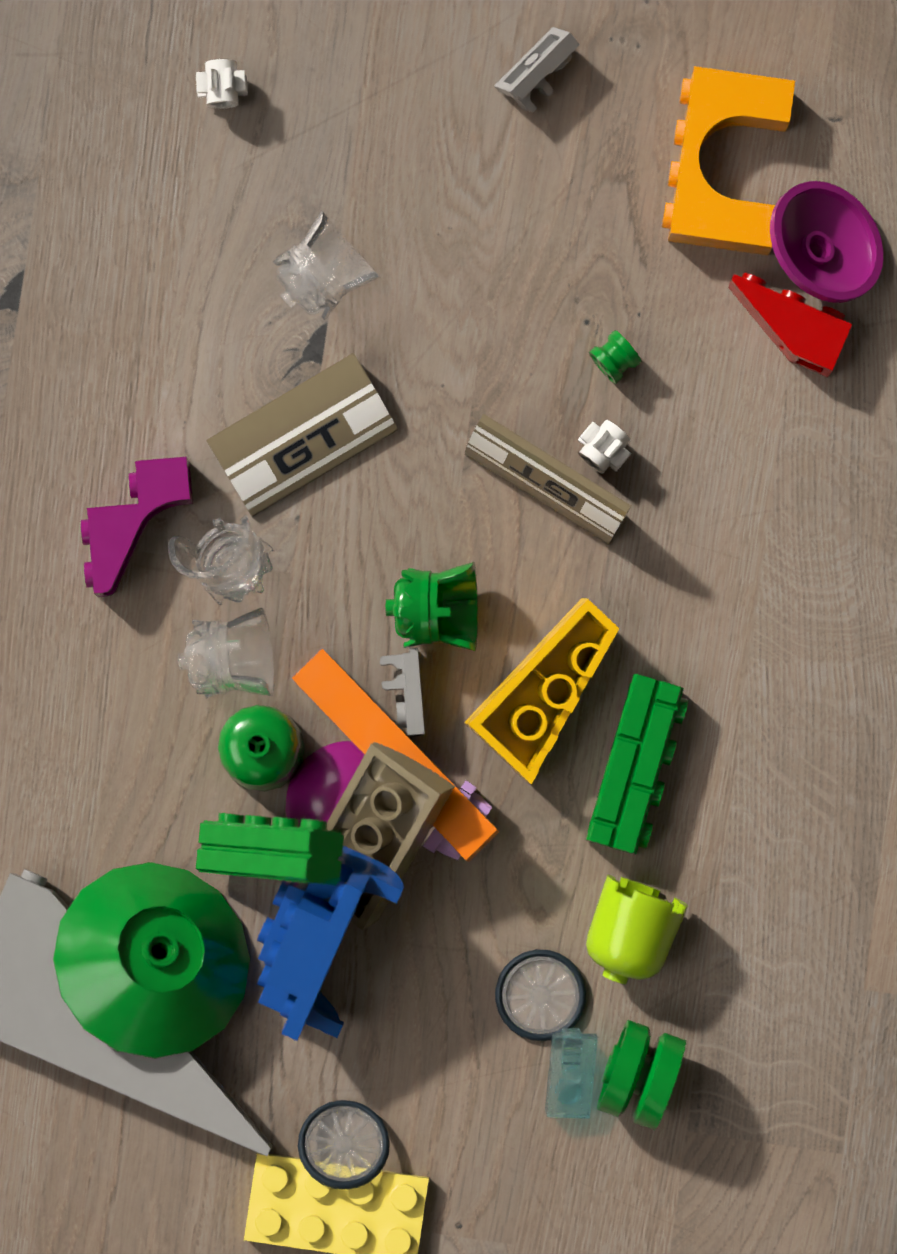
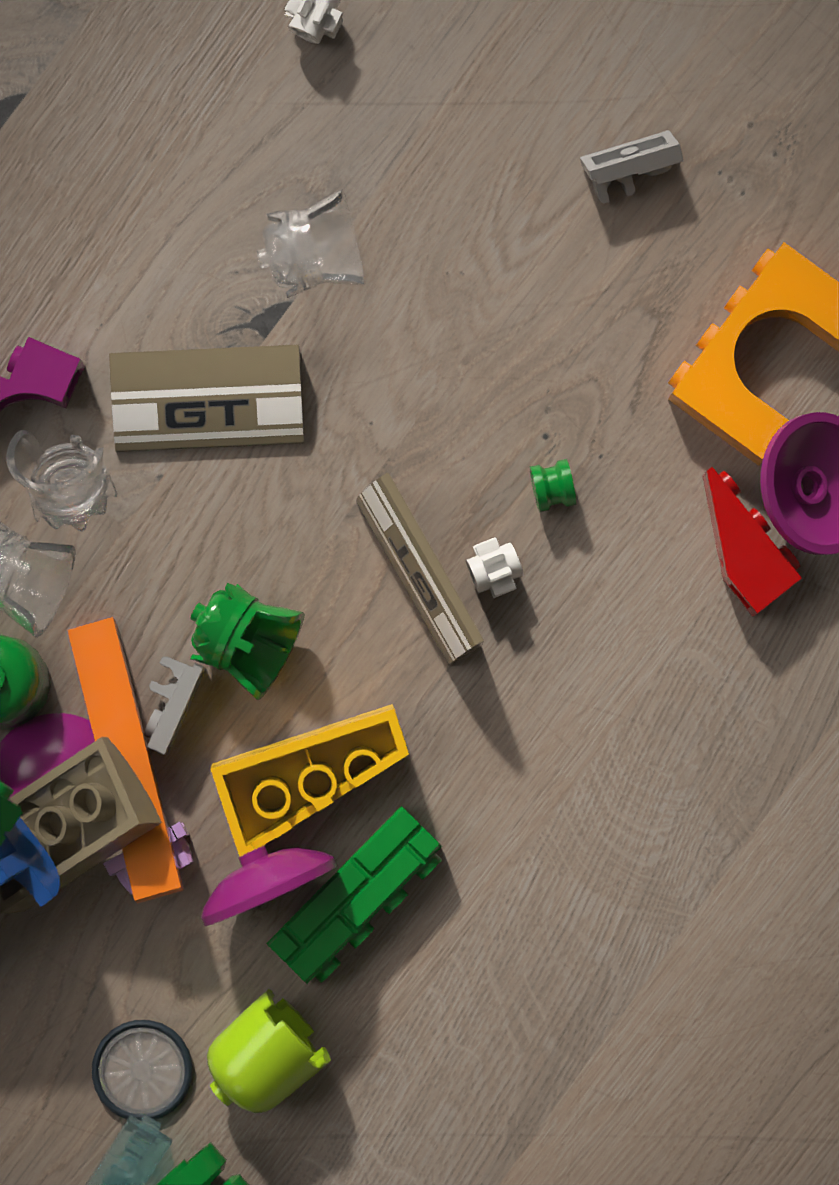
camera: 25 degrees right, 0 degrees up
(558, 789) = (262, 879): none -> magenta dish

